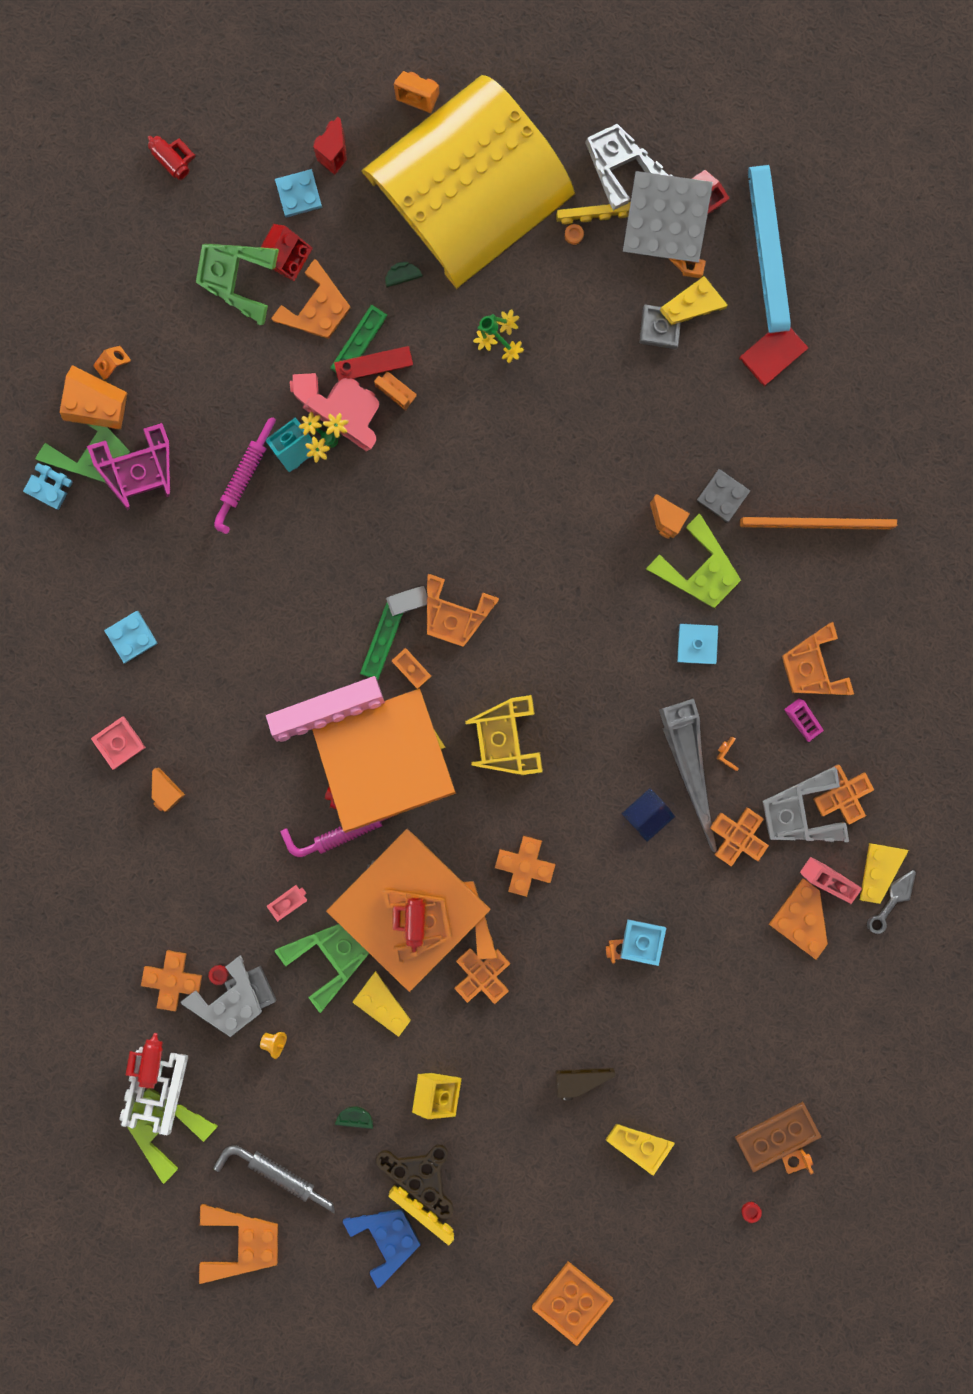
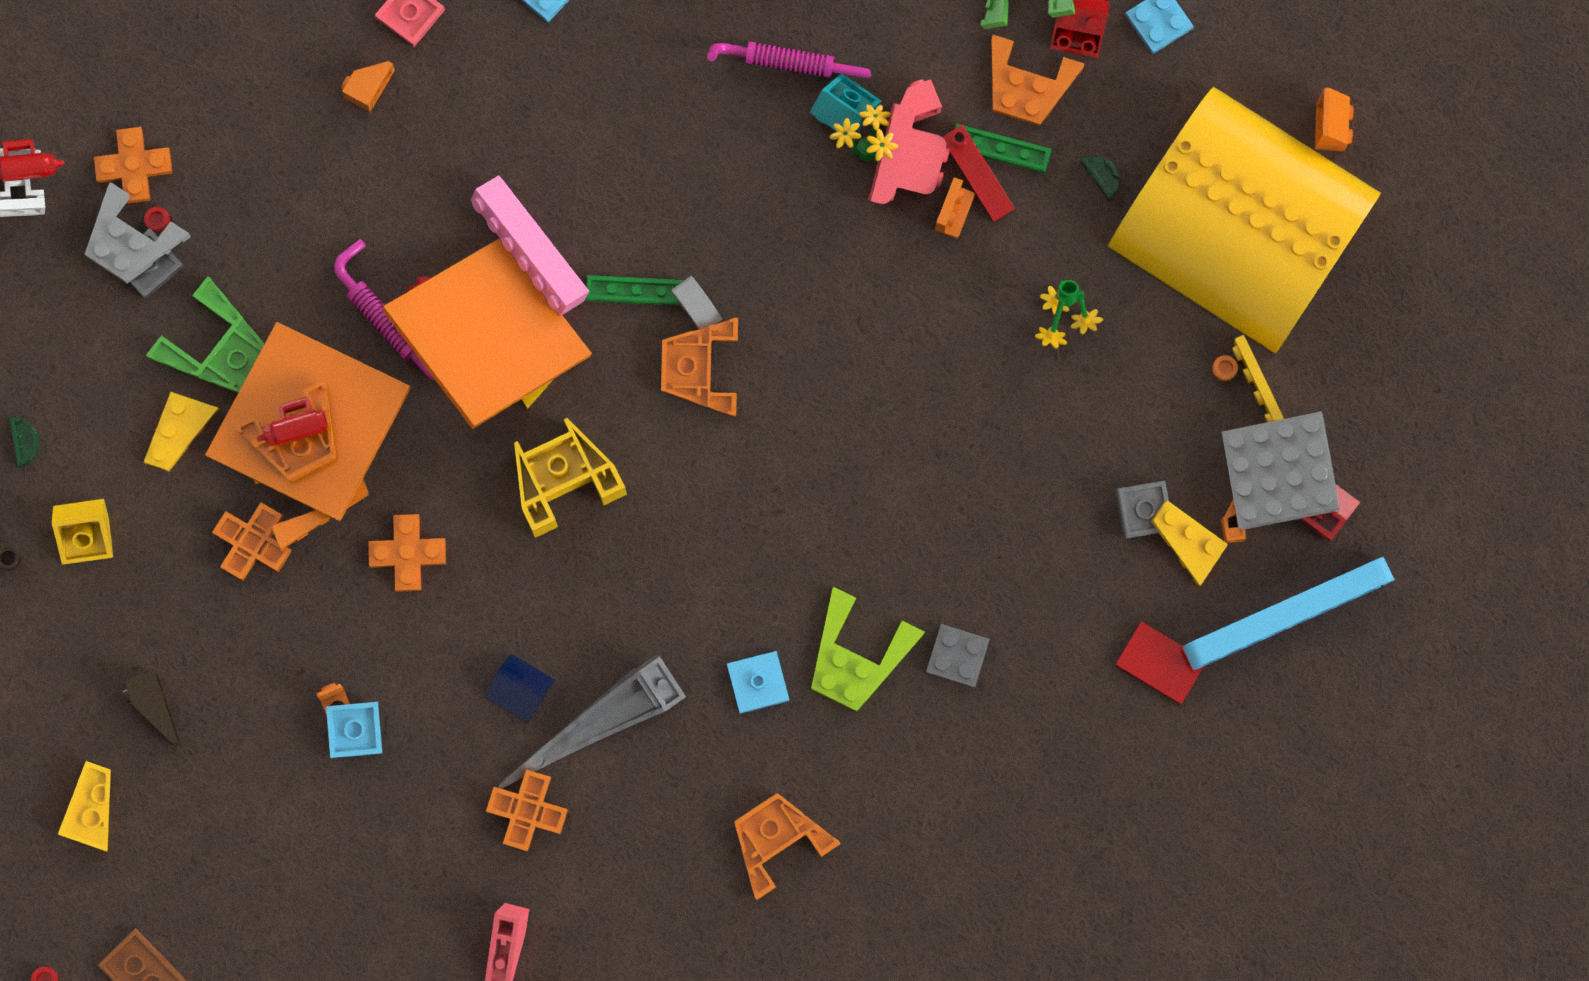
camera: 65 degrees right, 10 degrees down
(273, 1043) = (90, 311): light orange piece -> none
(287, 902) = (273, 273): coral plate -> none
(330, 147) = (1227, 41): red slope -> none
(411, 668) = (613, 335): orange plate -> none
(613, 149) = (1345, 381): wing -> none
(667, 516) = (903, 590): orange slope -> none
(723, 750) = (634, 755): orange bracket -> none
(787, 815) = (570, 864): light grey wing -> none
(795, 706) = (715, 829): dark pink slope -> none
(803, 919) = (444, 927): orange plate -> none
(827, 523) = (961, 785): orange tile -> none
(845, 797) = (623, 927): orange plate -> none

